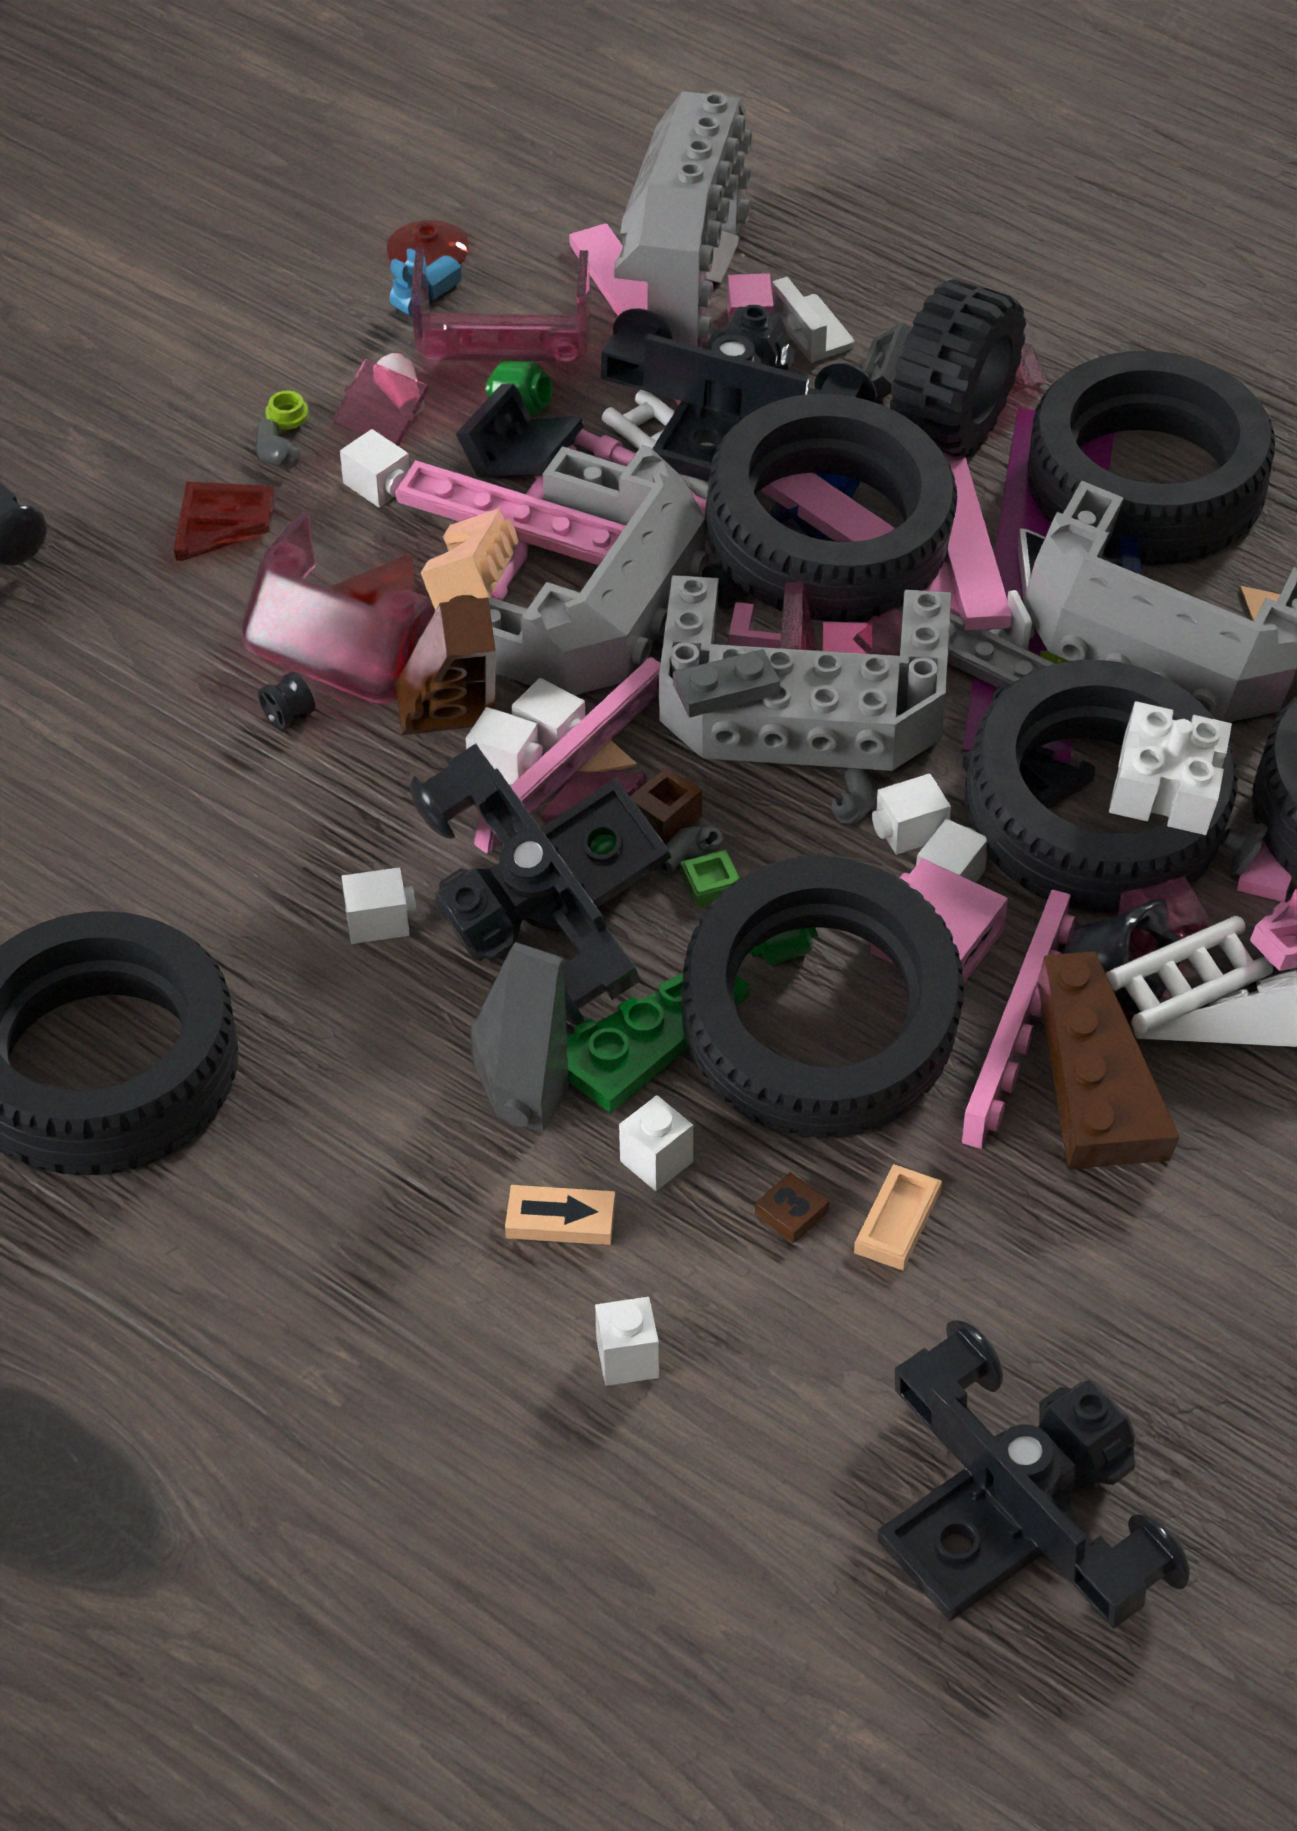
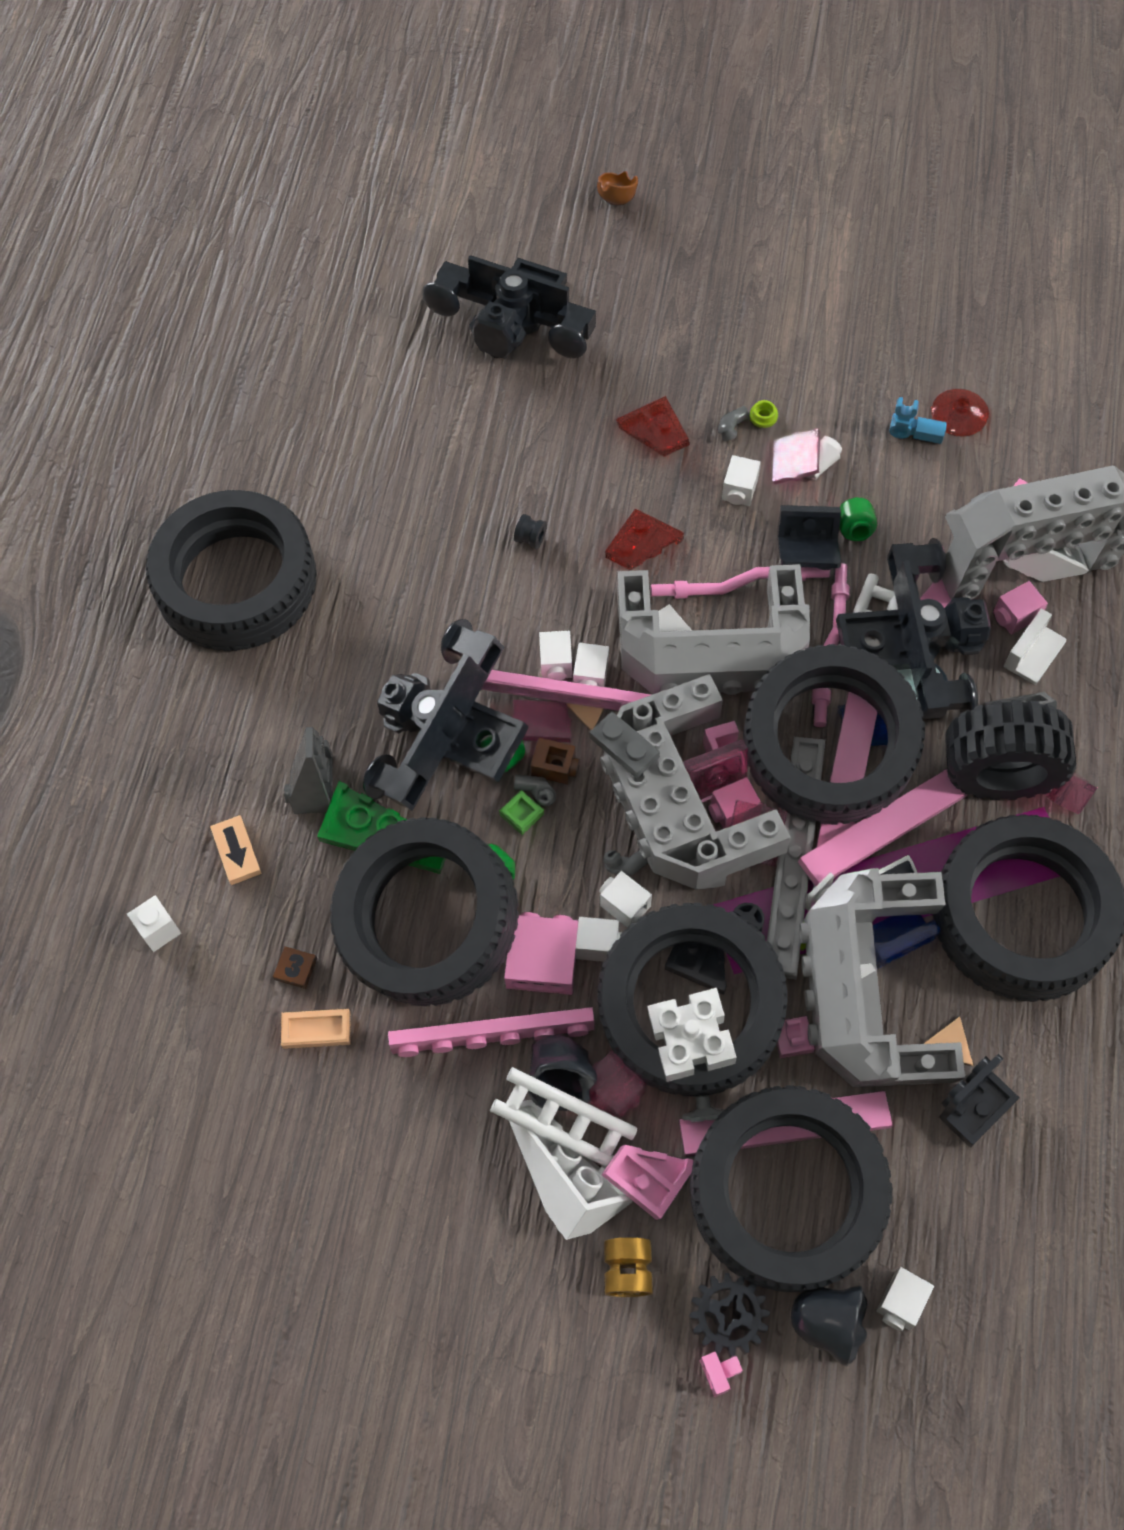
camera: 65 degrees right, 15 degrees up
(327, 632) = (598, 557): clear pink windscreen -> none
(377, 905) = (402, 651): white brick -> none
(450, 669) = (569, 600): reddish brown wedge -> none
(474, 560) = (643, 566): light nougat arch -> none
(500, 335) = (880, 479): clear pink windscreen -> none
(534, 519) = (742, 563): bright pink tile -> none
(656, 1143) = (297, 874): white brick -> none
(1017, 1490) = (133, 1180): black piece -> none
(1099, 1075) = (456, 1094): reddish brown wedge -> none

